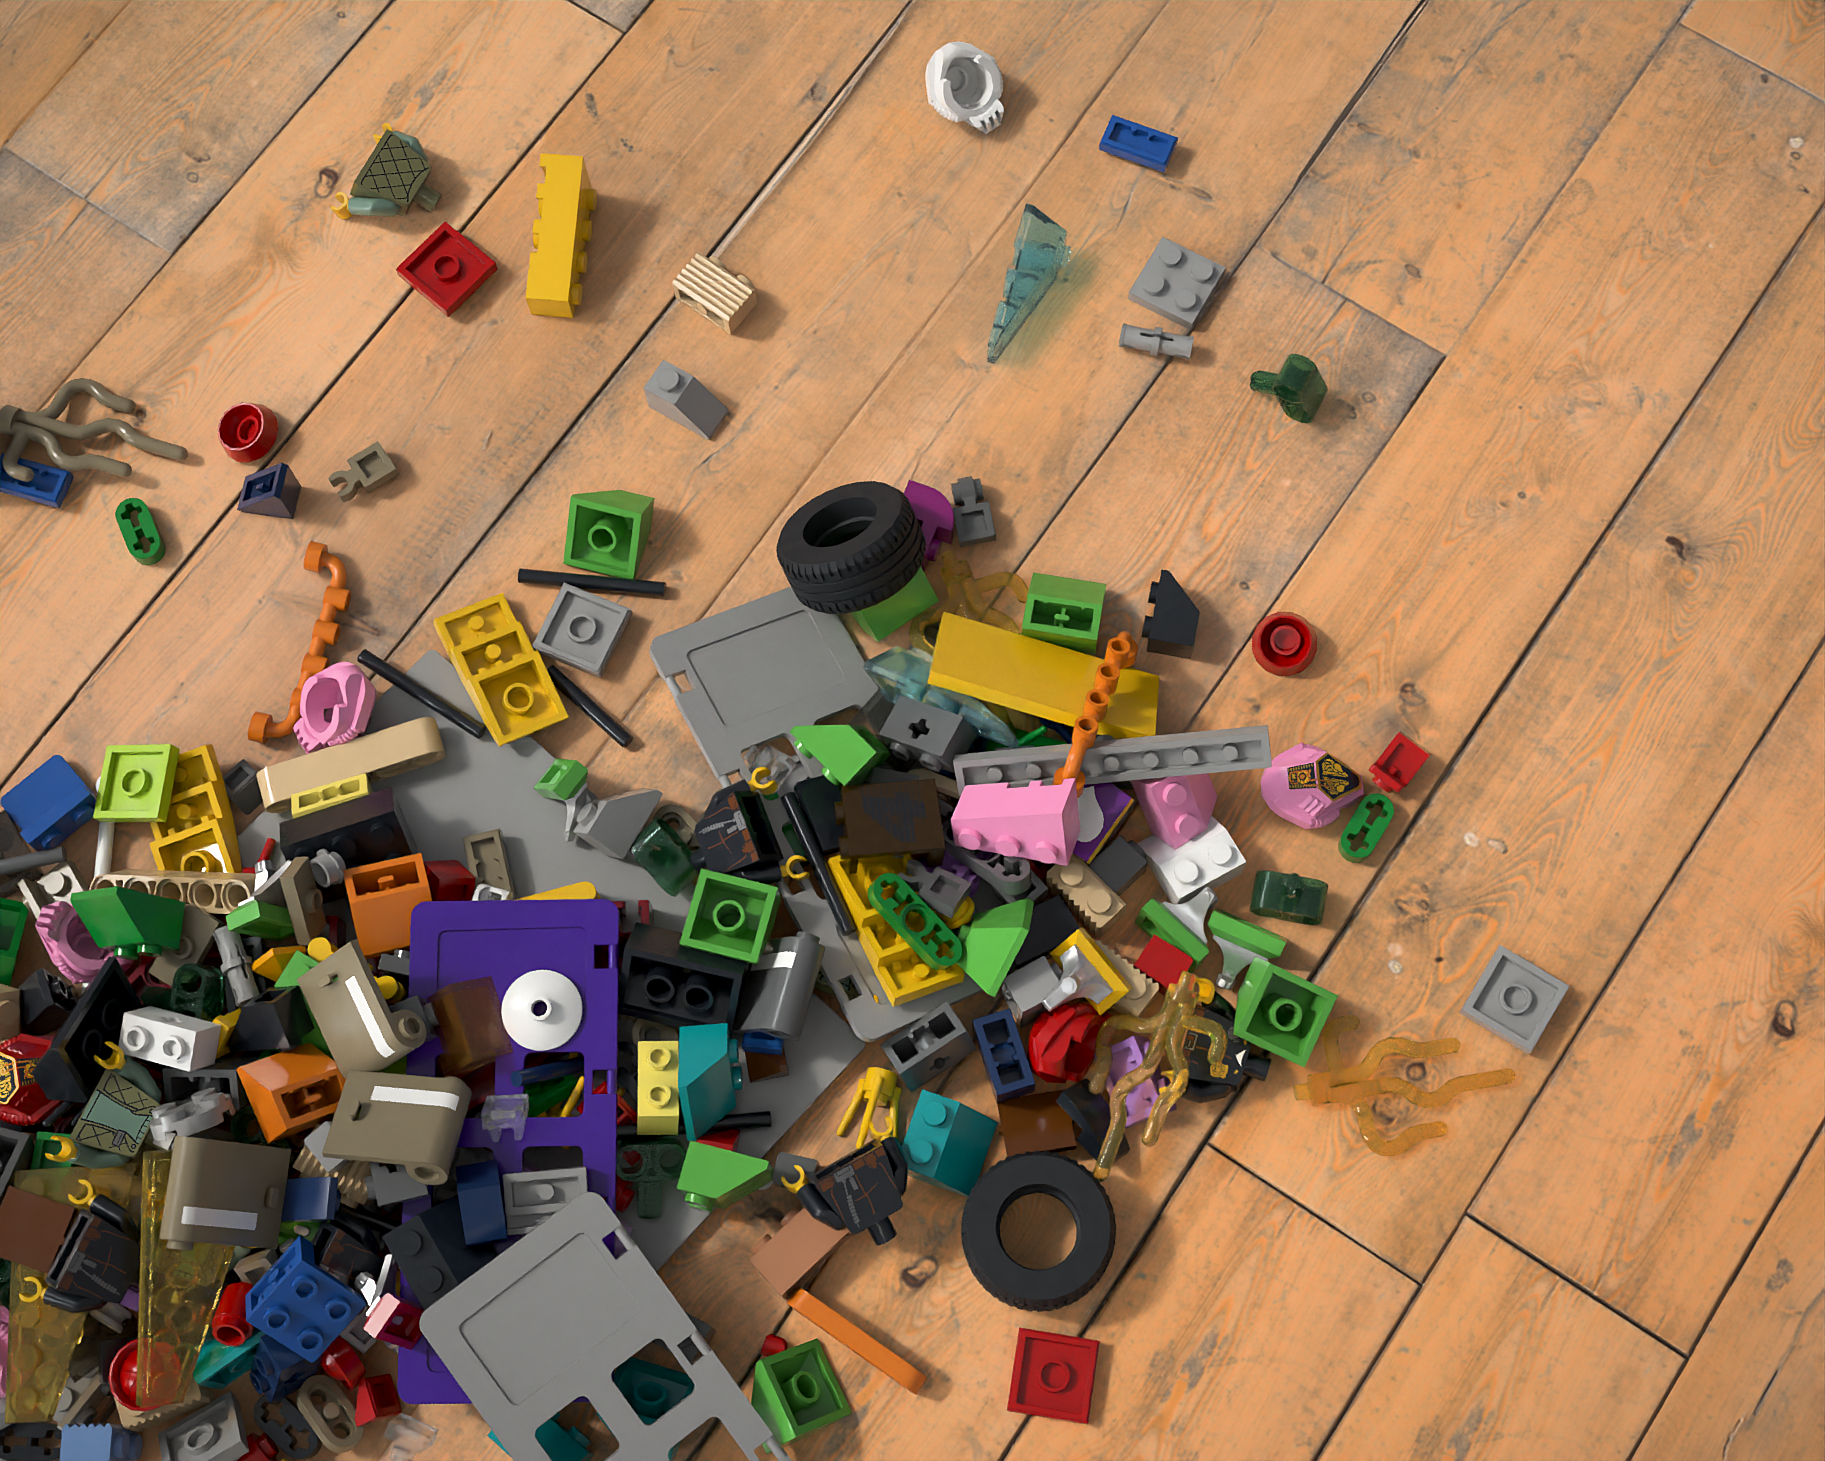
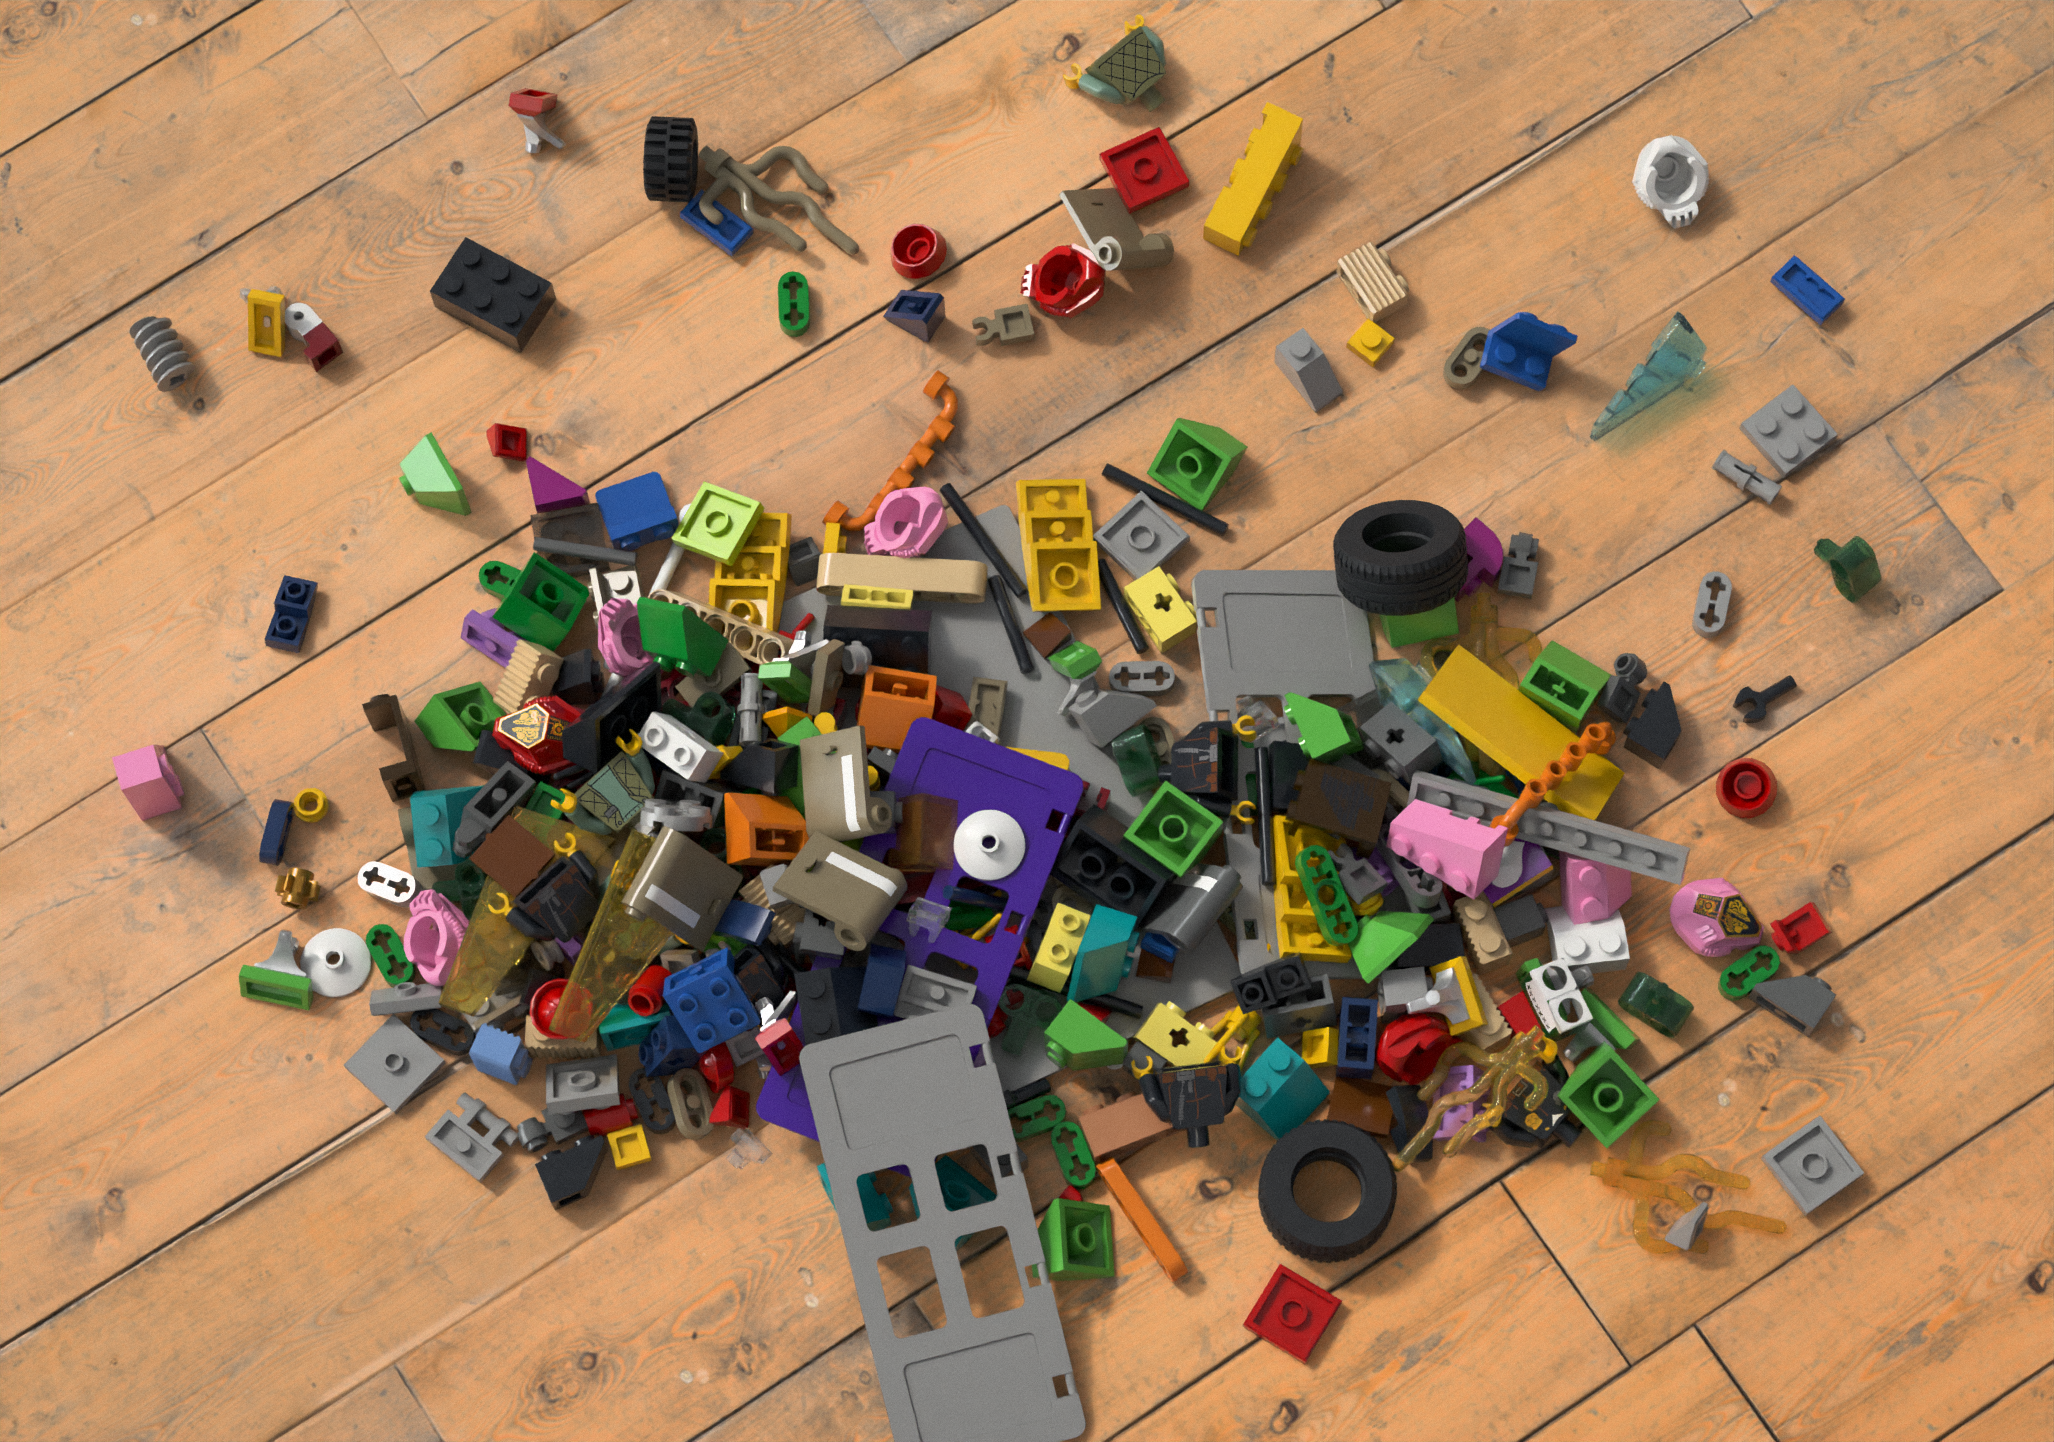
camera: 20 degrees right, 0 degrees up
(266, 752) = (834, 541): none -> yellow plate
(419, 406) = (1065, 281): none -> red helmet
(438, 339) = (1113, 232): none -> dark tan door
(481, 768) = (1010, 624): none -> black bar
(524, 764) = (1048, 635): none -> reddish brown slope
(634, 763) = (1142, 670): none -> light grey beam
(639, 710) = (1163, 627): none -> light yellow brick
(668, 1268) = (1026, 1093): none -> black bar
(708, 1284) = (1033, 1108): none -> green beam
(736, 351) = (1370, 342): none -> yellow plate
(751, 1306) = (1080, 1151): none -> green beam
(794, 1135) = (1168, 1018): none -> light yellow brick
(838, 331) = (1466, 359): none -> dark tan plate
(889, 297) = (1524, 349): none -> blue bracket
(893, 1035) = (1271, 982): none -> black slope
(969, 1080) = (1320, 1047): none -> yellow plate
(1122, 600) = (1619, 693): none -> dark grey plate
(1173, 937) = (1547, 1014): none -> white piece
(1181, 475) = (1704, 603): none -> light grey beam
(1261, 551) = (1760, 699): none -> black bar
(1418, 1116) = (1688, 1227): none -> light grey slope
(1426, 838) = (1795, 1000): none -> dark grey slope

